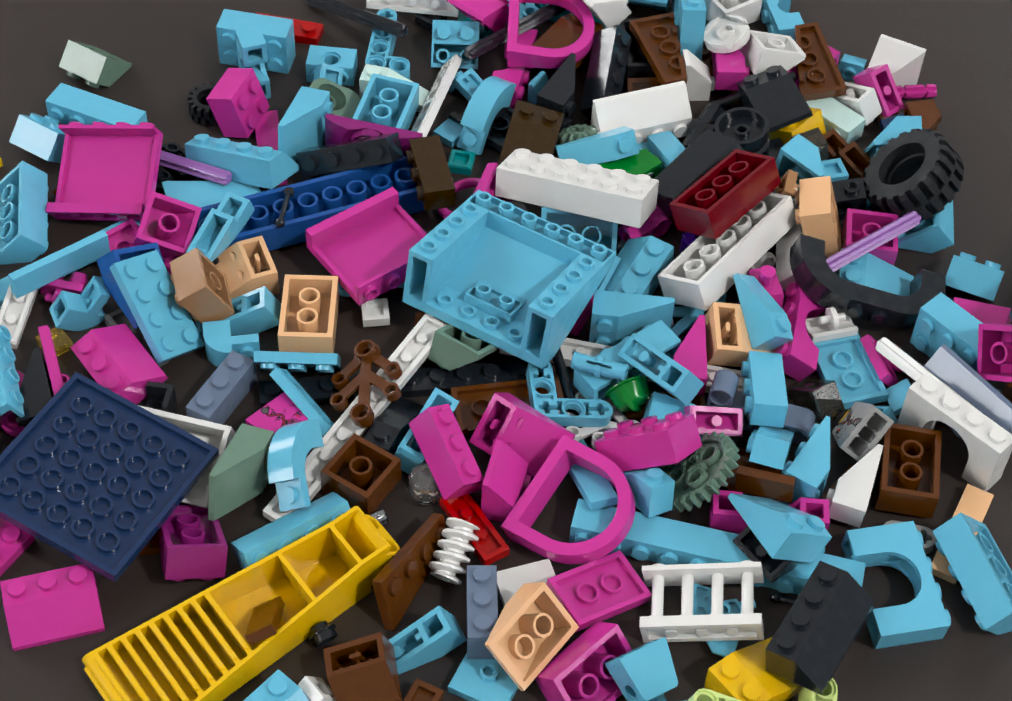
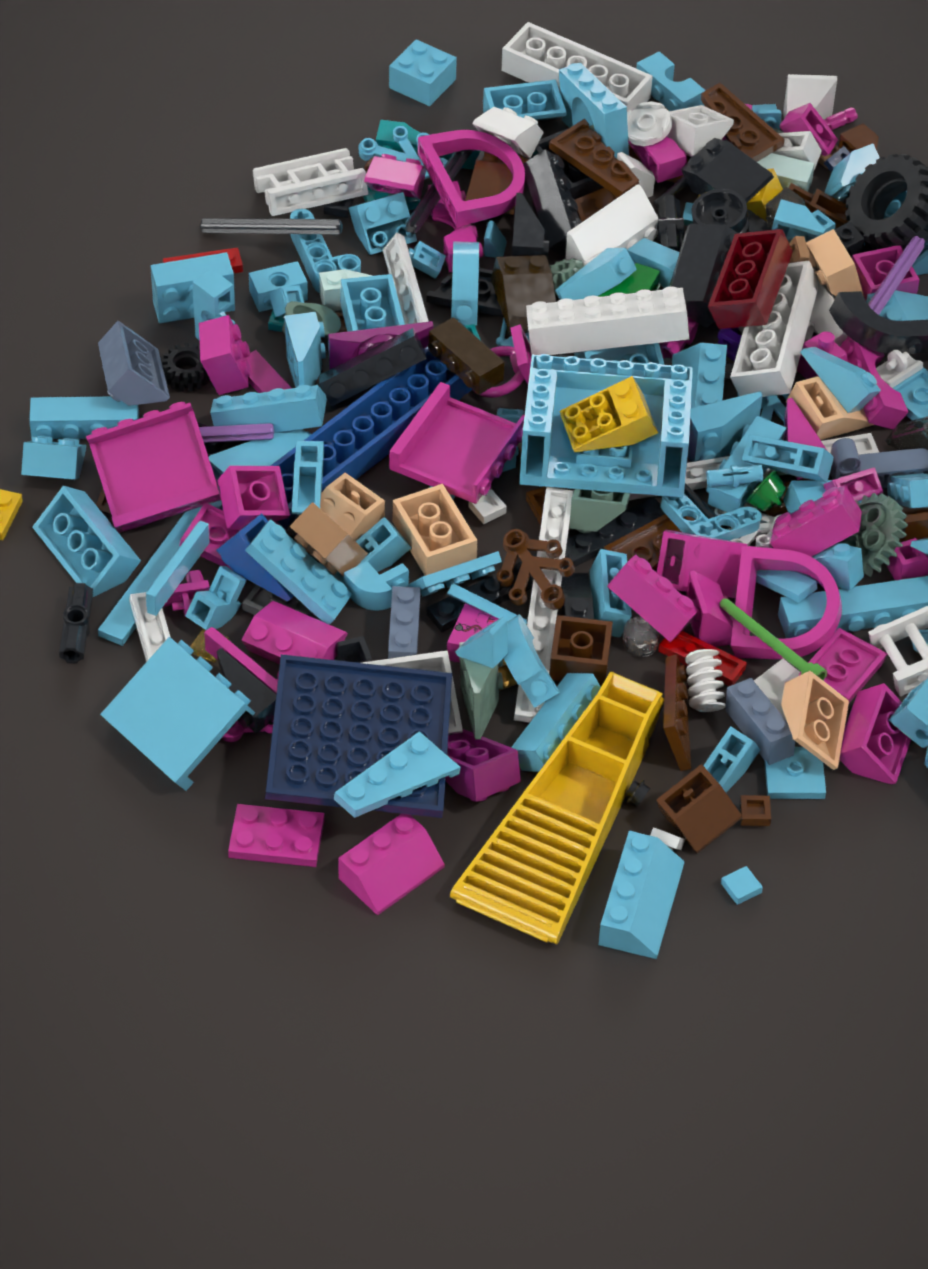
camera: 25 degrees left, 0 degrees up
(92, 64) = (40, 368): slope -> none
(103, 522) = (397, 774): none -> medium azure wing
(158, 87) = (132, 367): none -> sand blue slope
(254, 436) = (487, 645): none -> medium azure slope
(265, 620) = (588, 798): reddish brown tile -> none
(288, 192) = (342, 423): black hinge -> none
(448, 132) = (437, 311): medium azure tile -> none
(510, 270) = (609, 418): none -> yellow slope
(553, 580) = (771, 640): none -> bright green piece
(764, 389) = (881, 443): medium azure brick -> none

